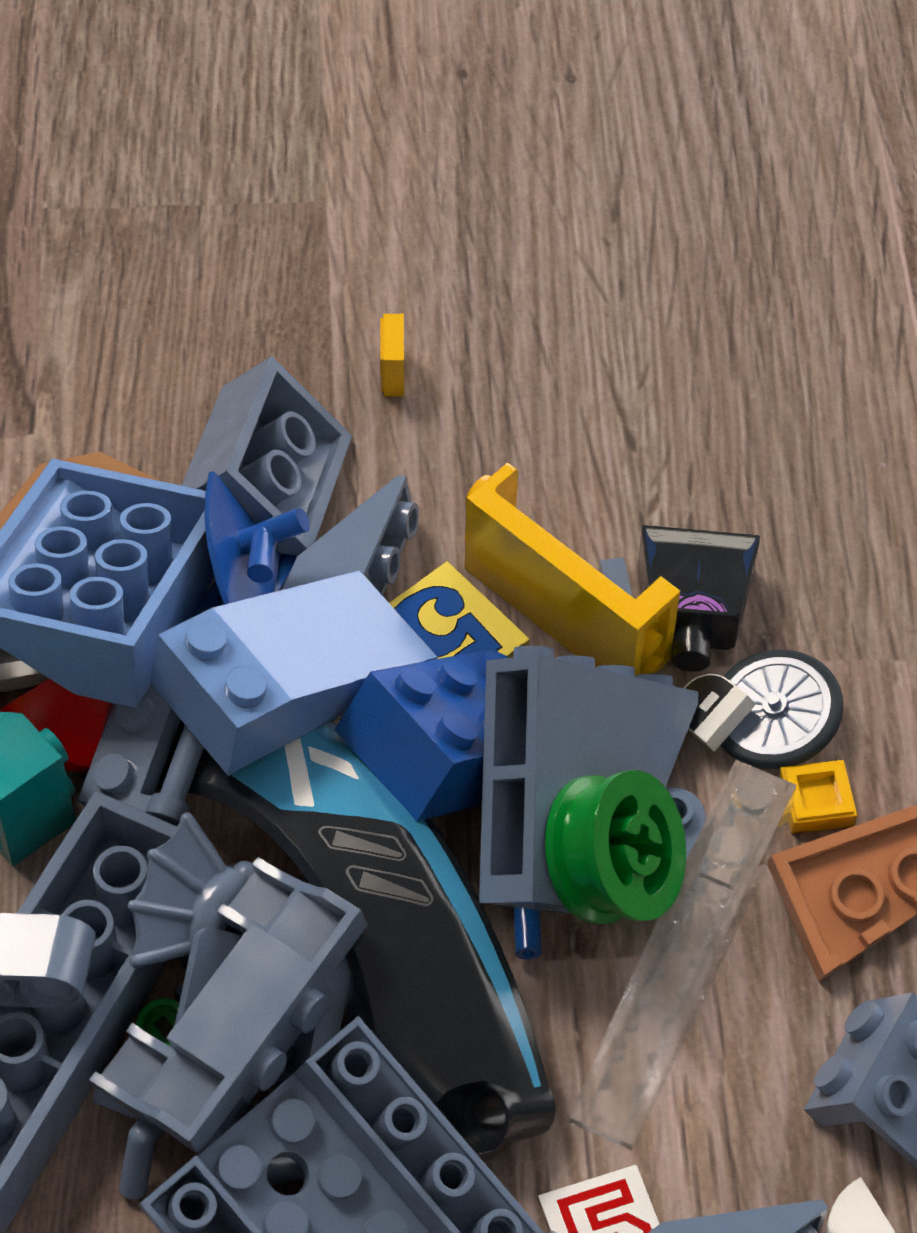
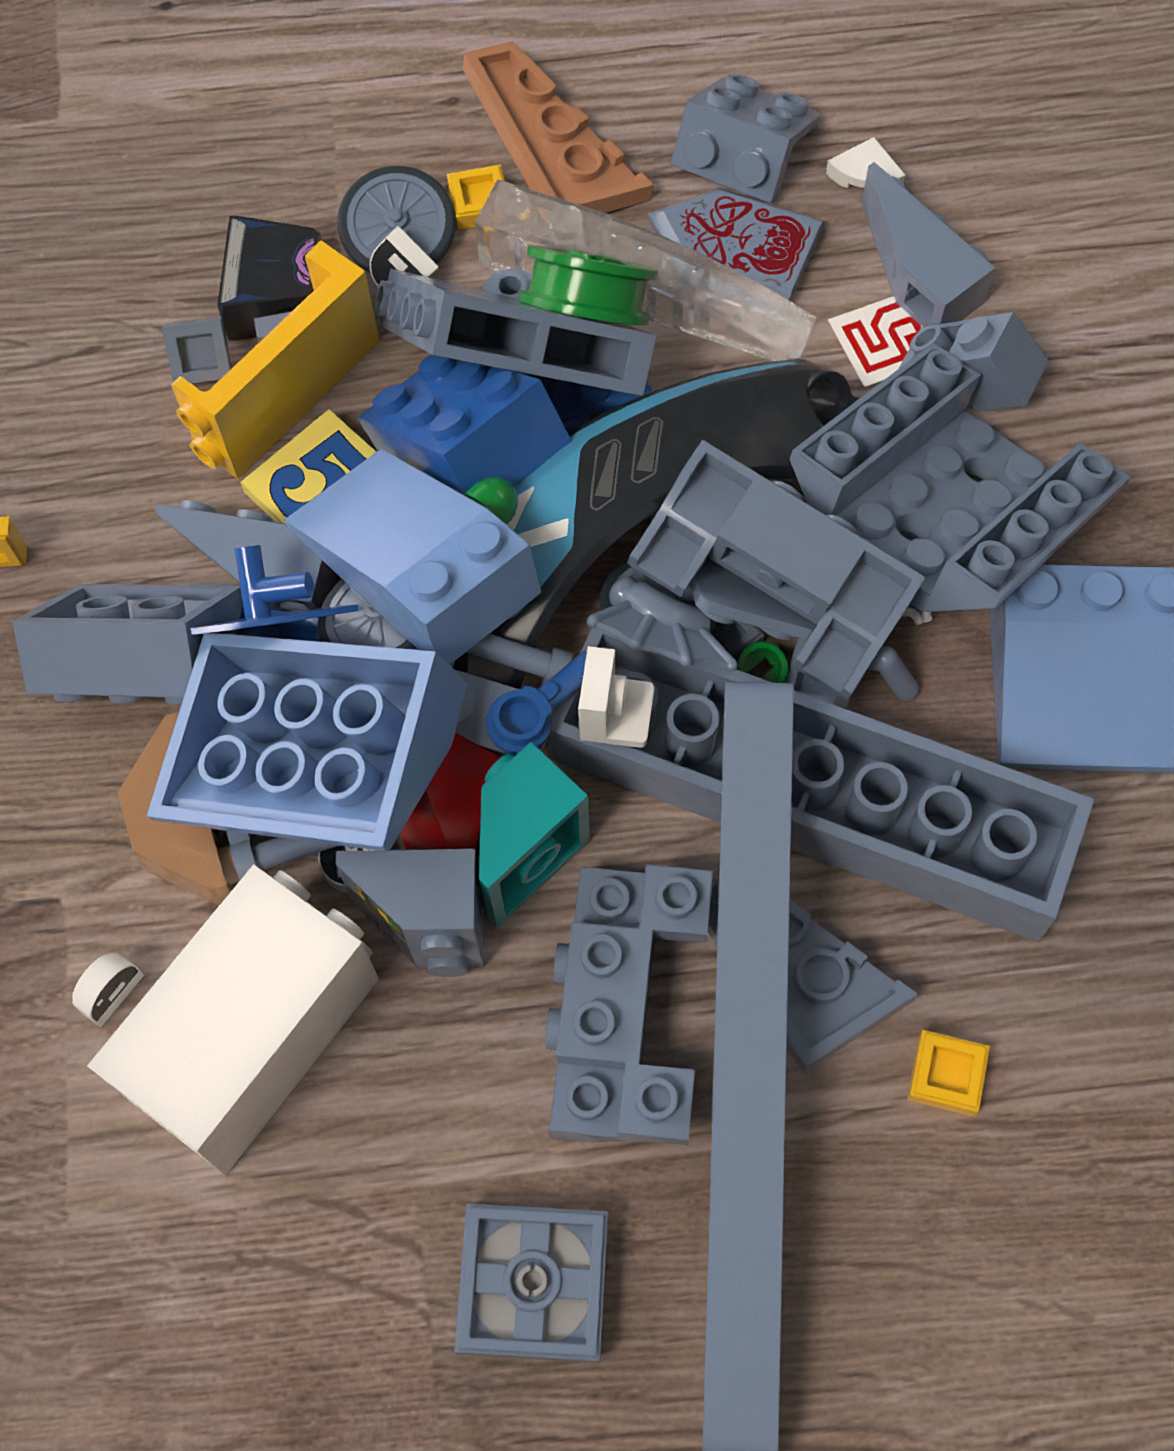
camera: 90 degrees left, 10 degrees up
(94, 827) = (611, 705): none -> white bracket
(100, 763) = (526, 713): none -> blue plate
(330, 730) = (496, 496): none -> green hinge
(605, 521) = (197, 349): none -> sand blue plate
(745, 1072) = (745, 235): none -> sand blue tile

